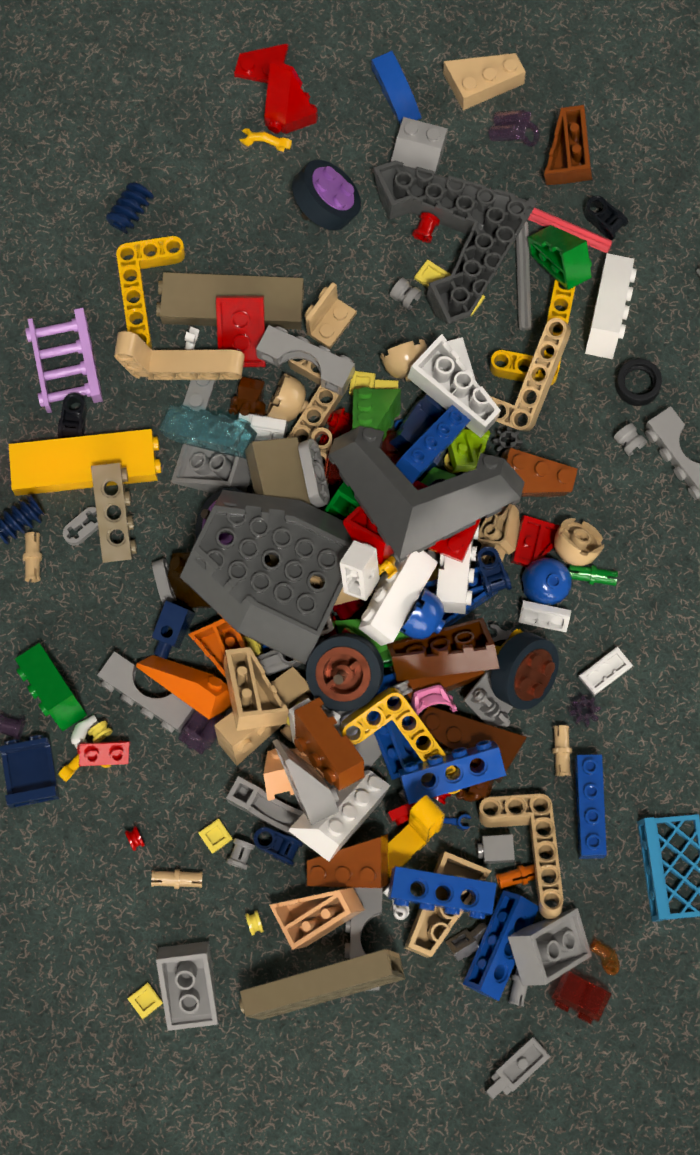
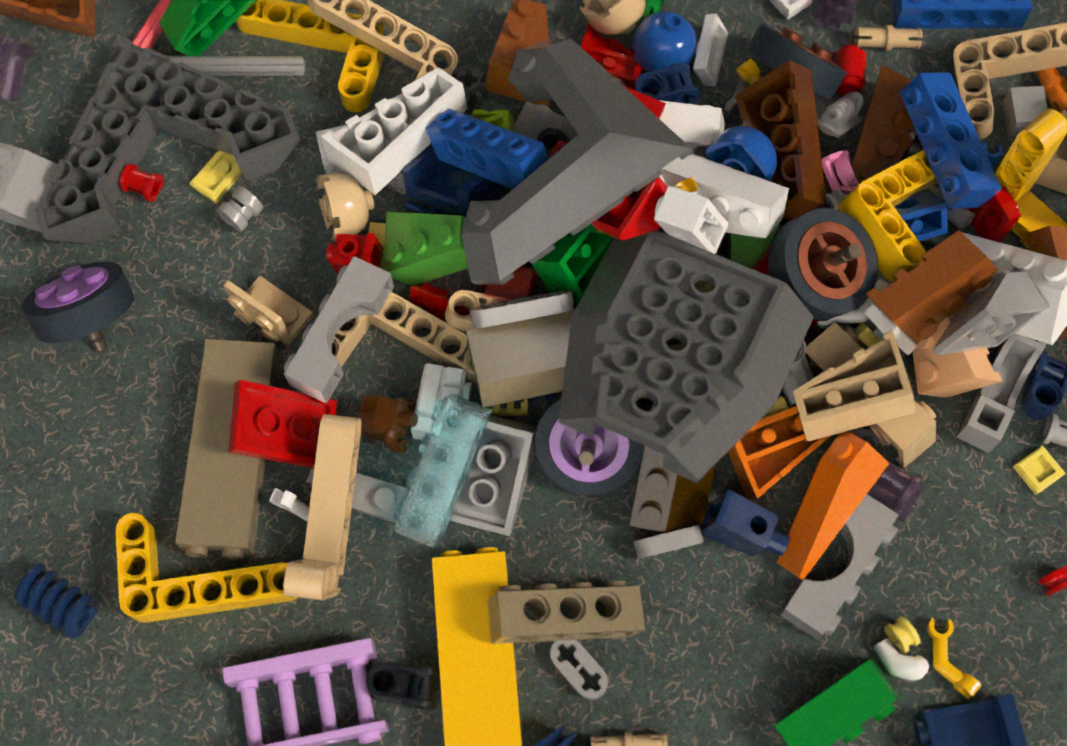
camera: 90 degrees left, 5 degrees down
(103, 753) = (932, 612): hinge -> none
(288, 398) = (386, 363): tan cylinder -> none
(367, 370) = (348, 245): none -> red brick
(531, 719) = (853, 61): none -> red brick

